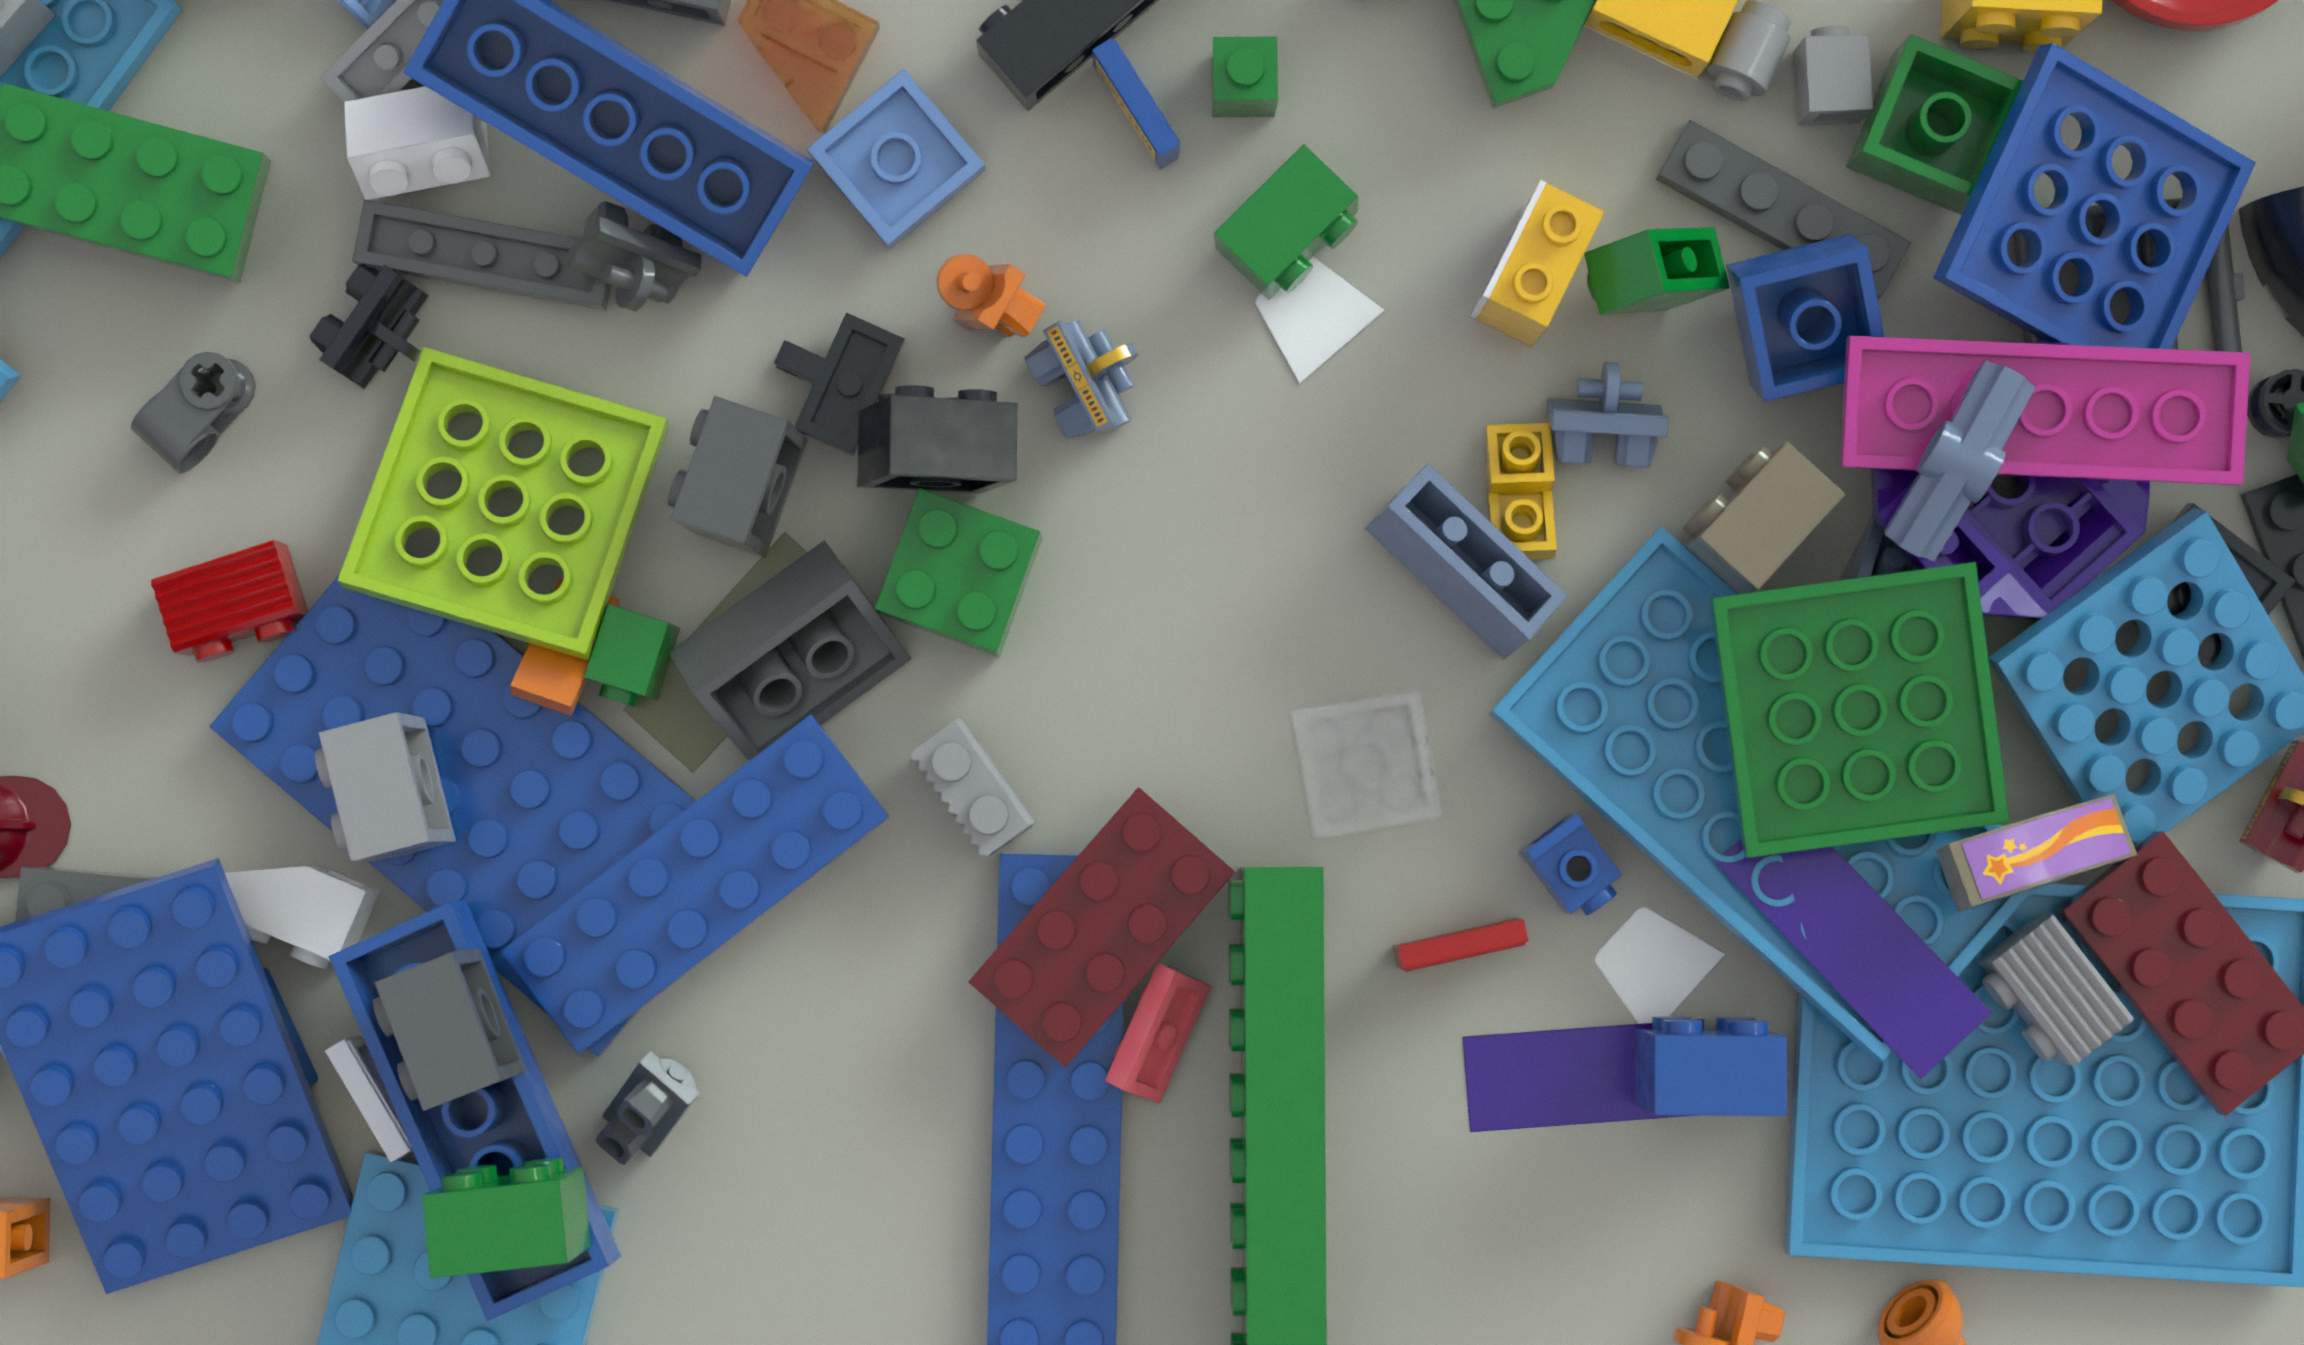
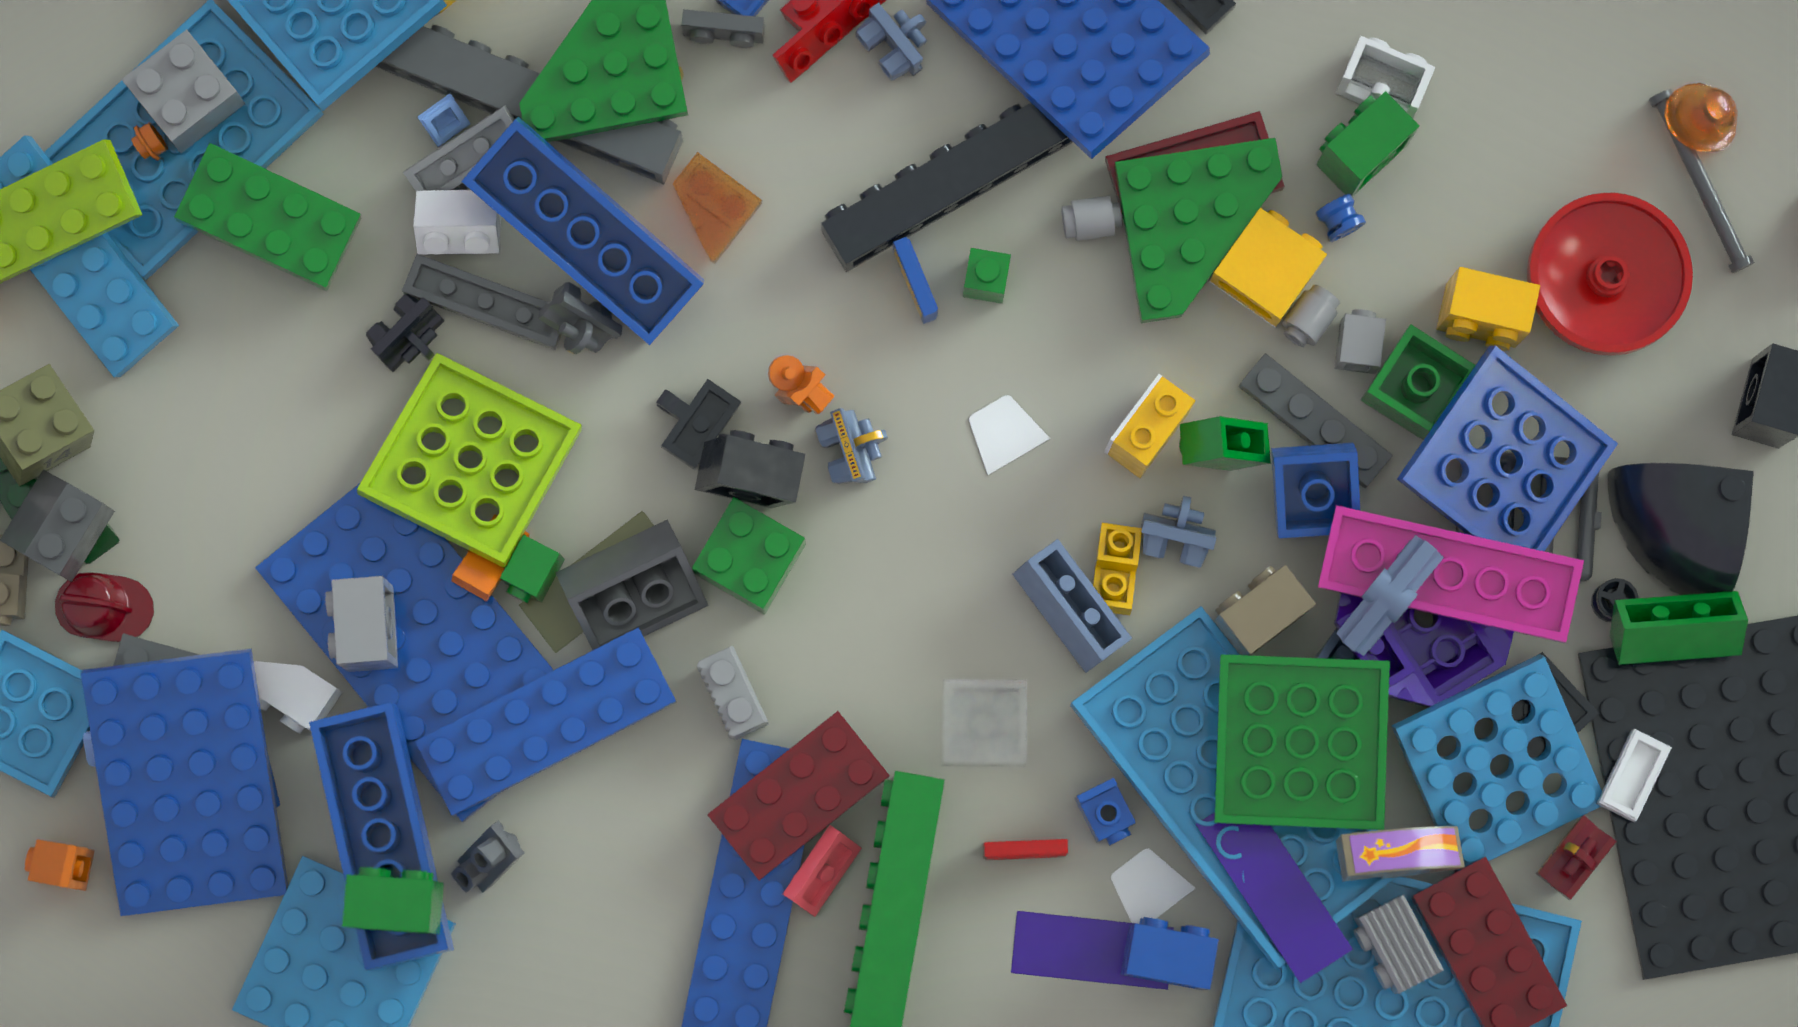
camera: 10 degrees right, 5 degrees down
(186, 414) = (280, 369): dark grey piece -> none
(230, 600) = (284, 490): red brick -> none
(364, 1083) = (316, 821): white tile -> none
(447, 1028) = (378, 777): dark grey brick -> none
(737, 475) = (620, 469): dark grey brick -> none
(896, 159) = (757, 288): medium blue plate -> none
(1288, 223) = (997, 373): green brick -> none

